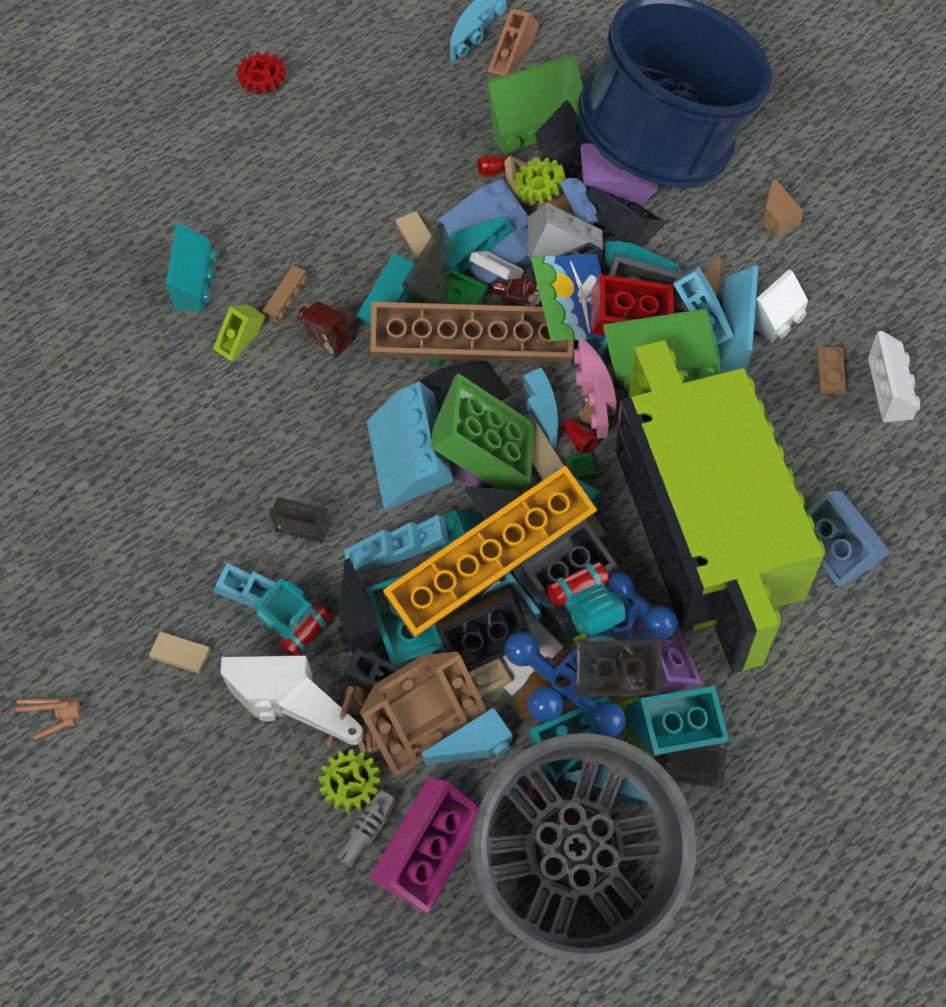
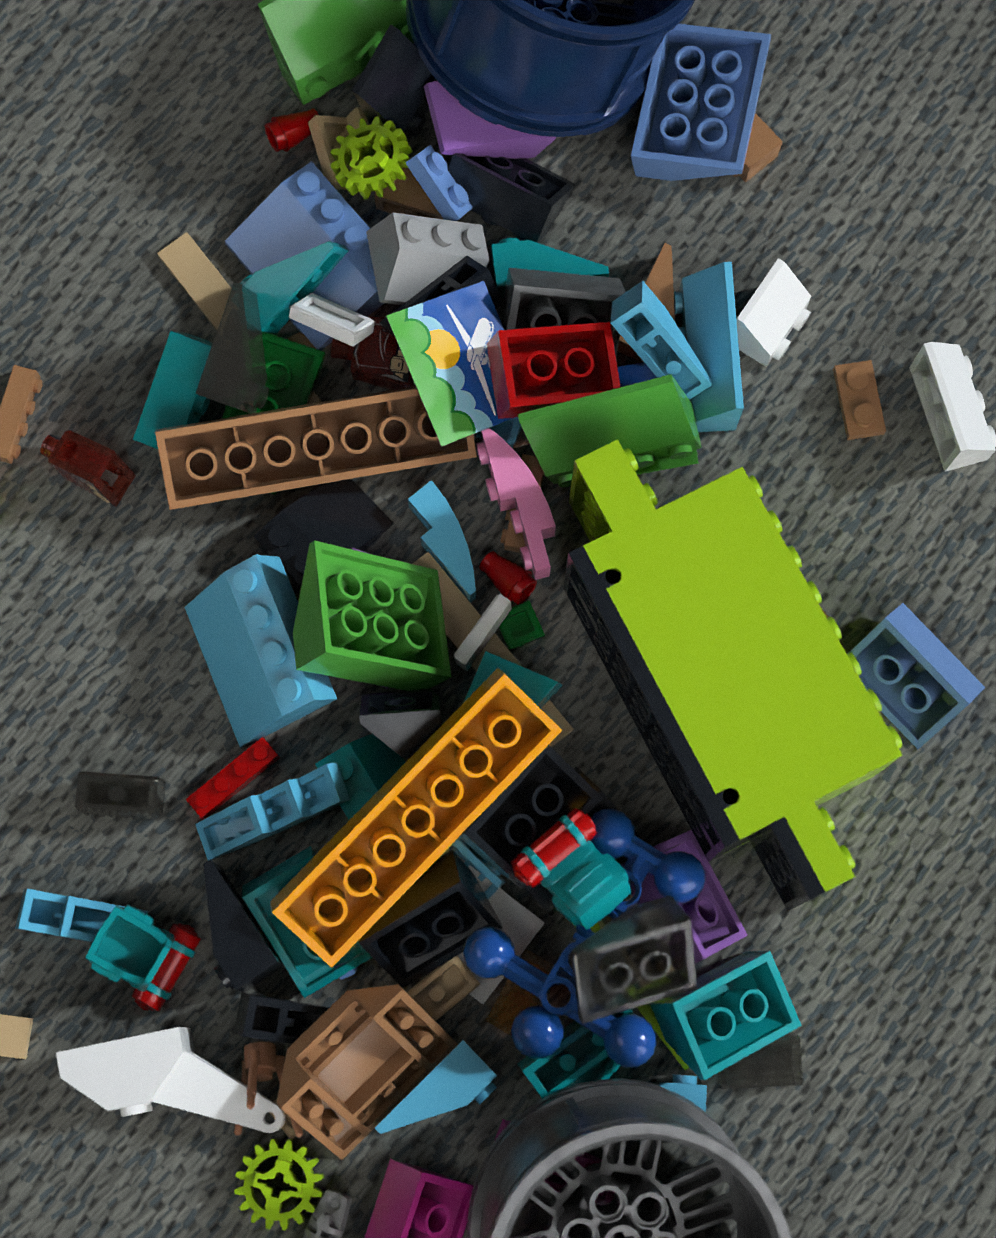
camera: 15 degrees left, 15 degrees up
(380, 521) = (232, 778): none -> red piece
(559, 458) = (482, 632): none -> white tile
(751, 182) = (699, 103): none -> medium blue slope

